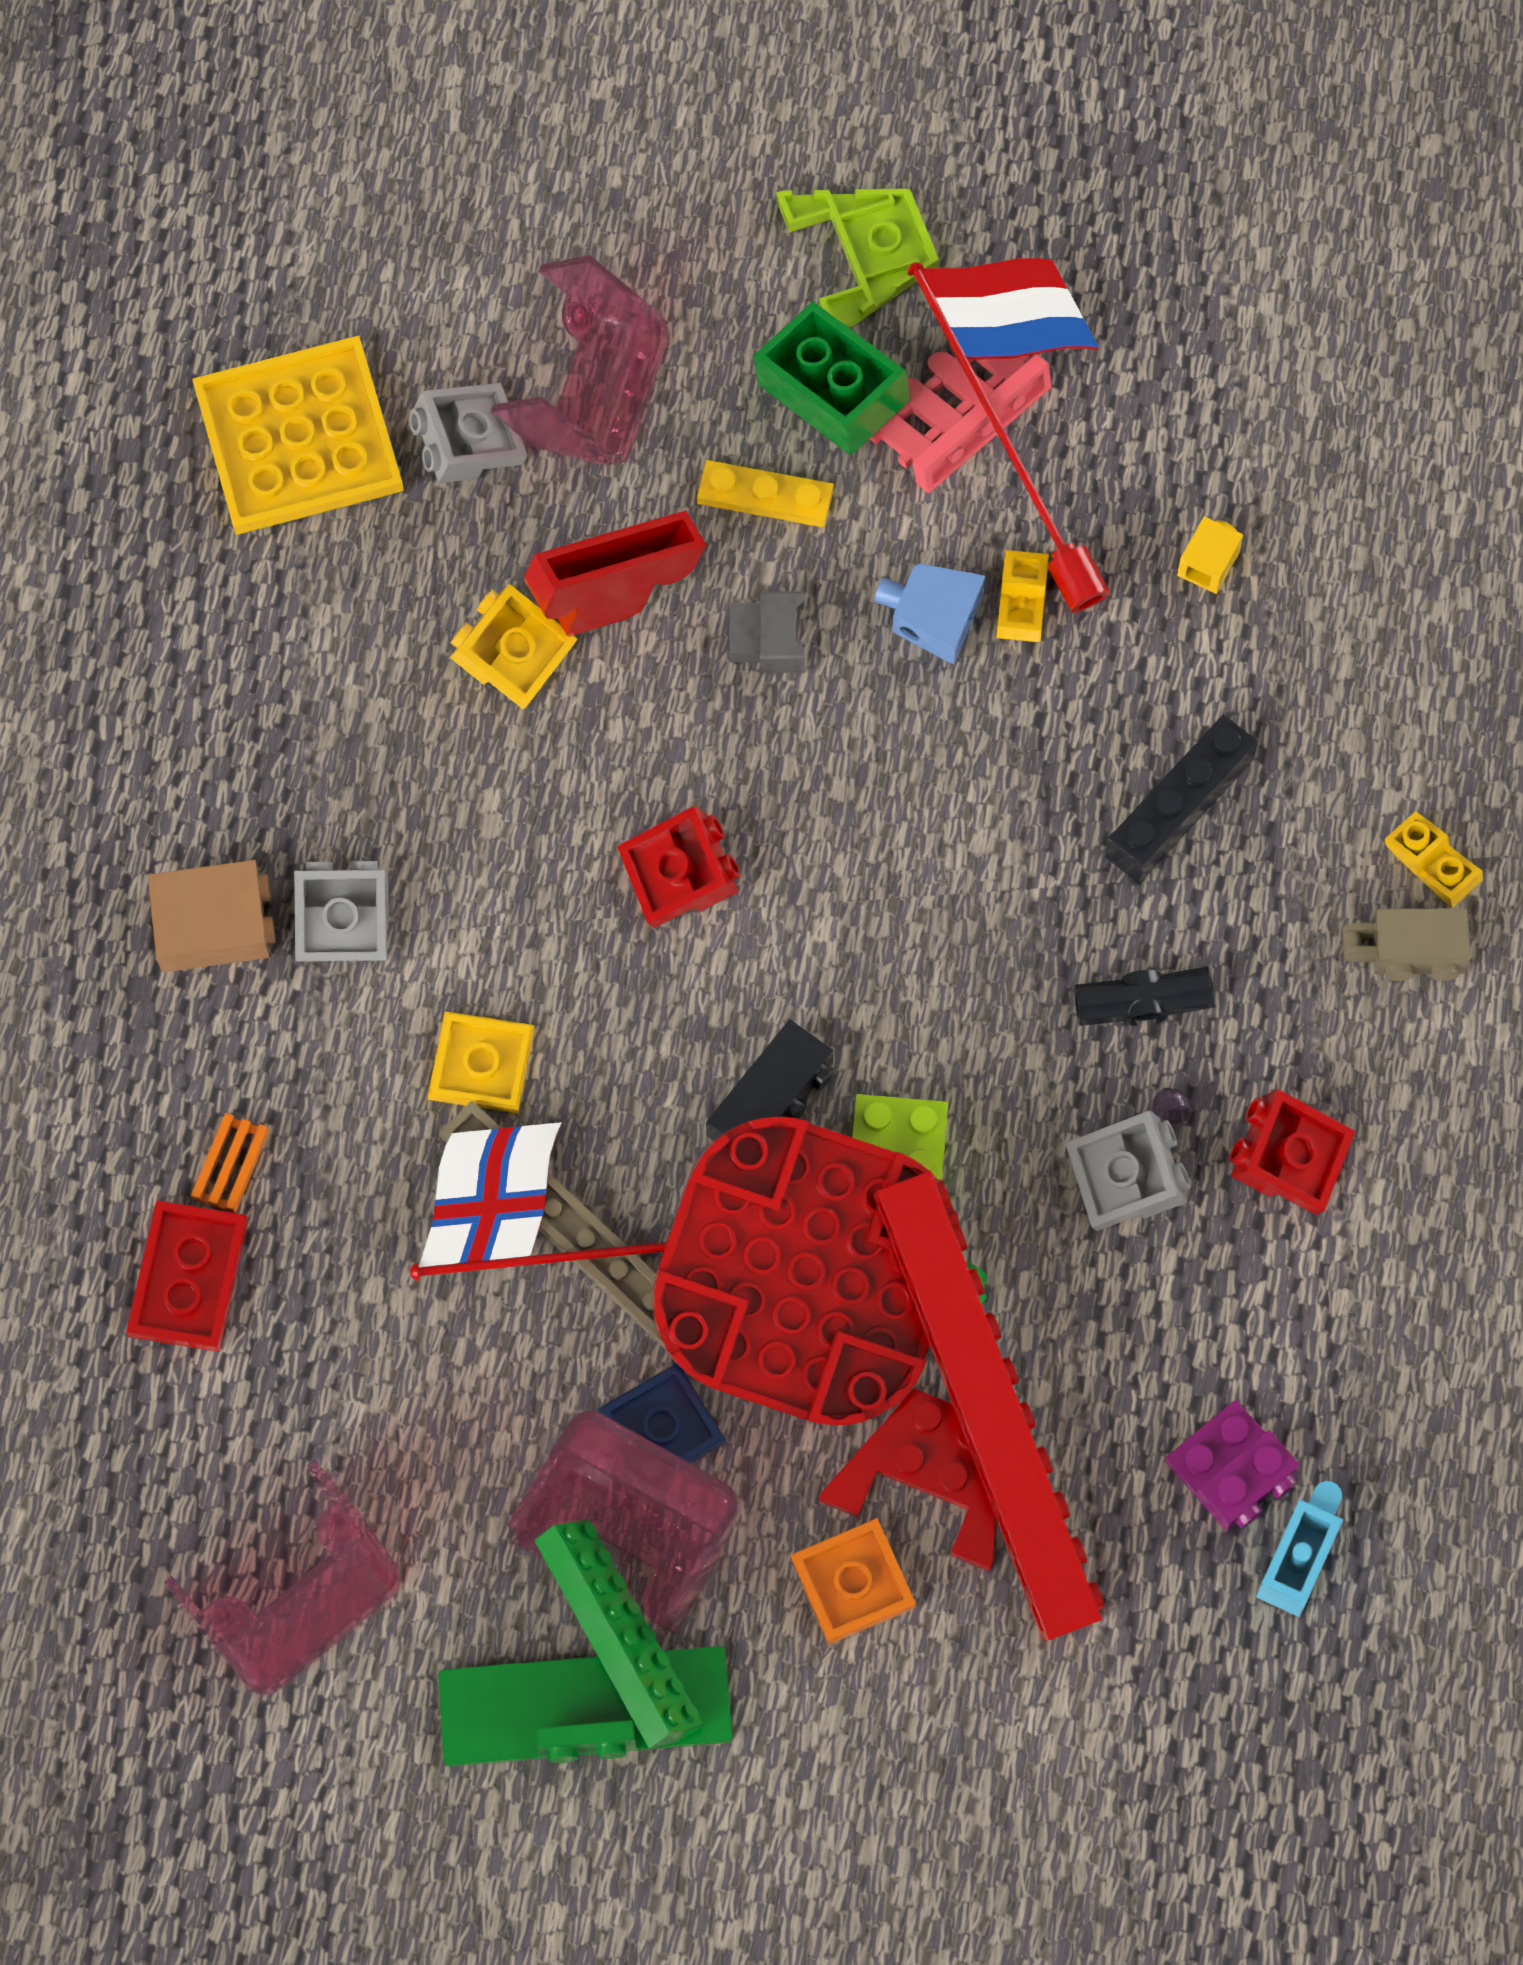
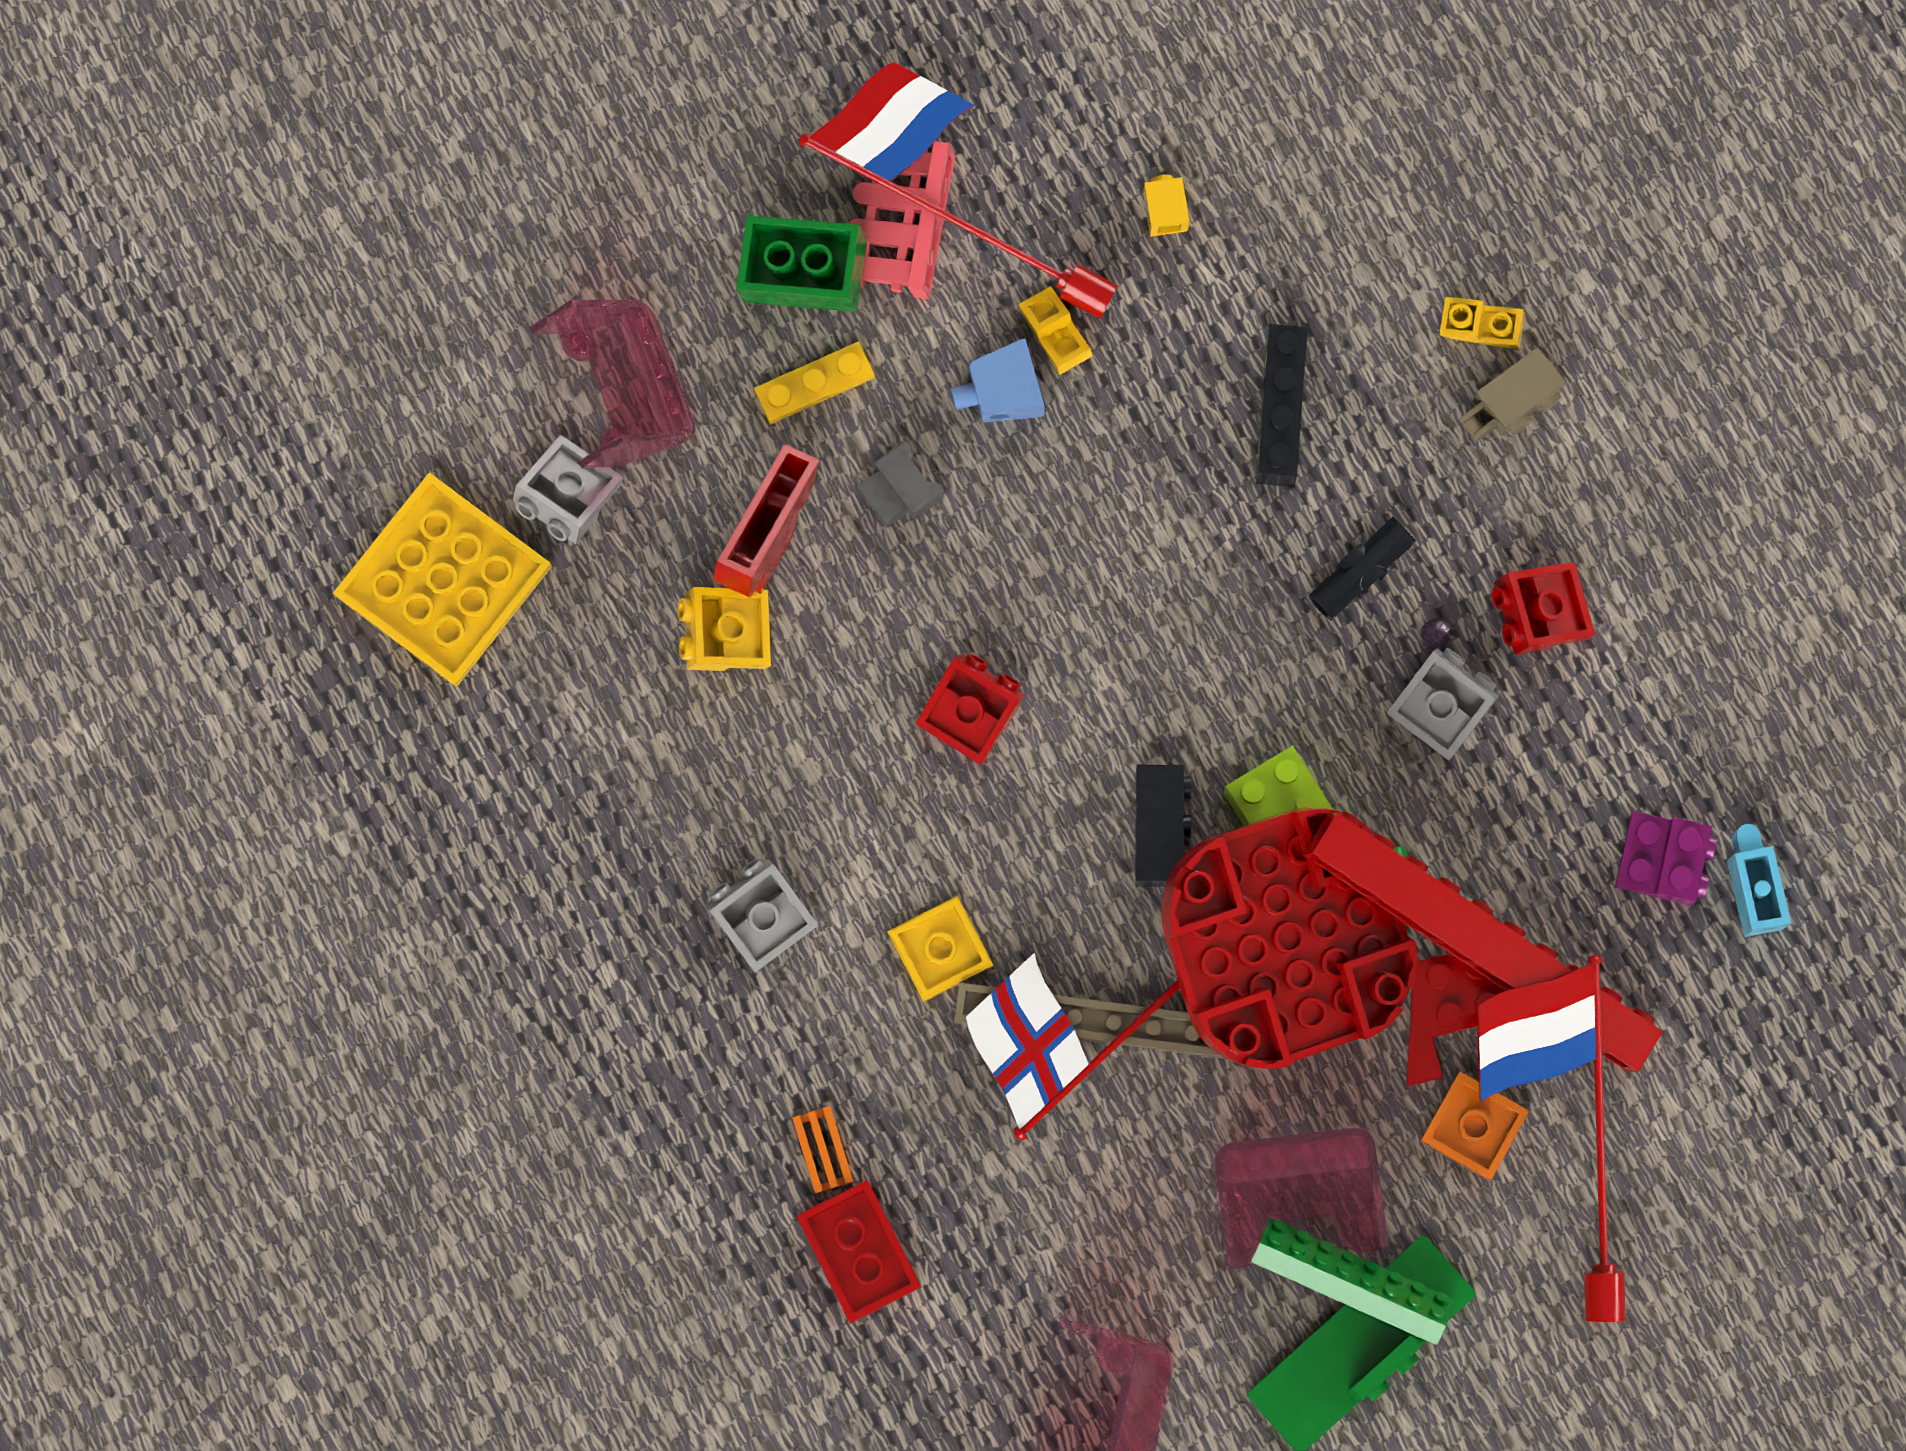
camera: 35 degrees left, 10 degrees up
(210, 915) = (669, 983): medium nougat brick -> none
(668, 1414) = (1262, 1107): dark blue tile -> none
(879, 237) = (748, 127): lime wing -> none
(983, 1534) = (1538, 1036): none -> flag

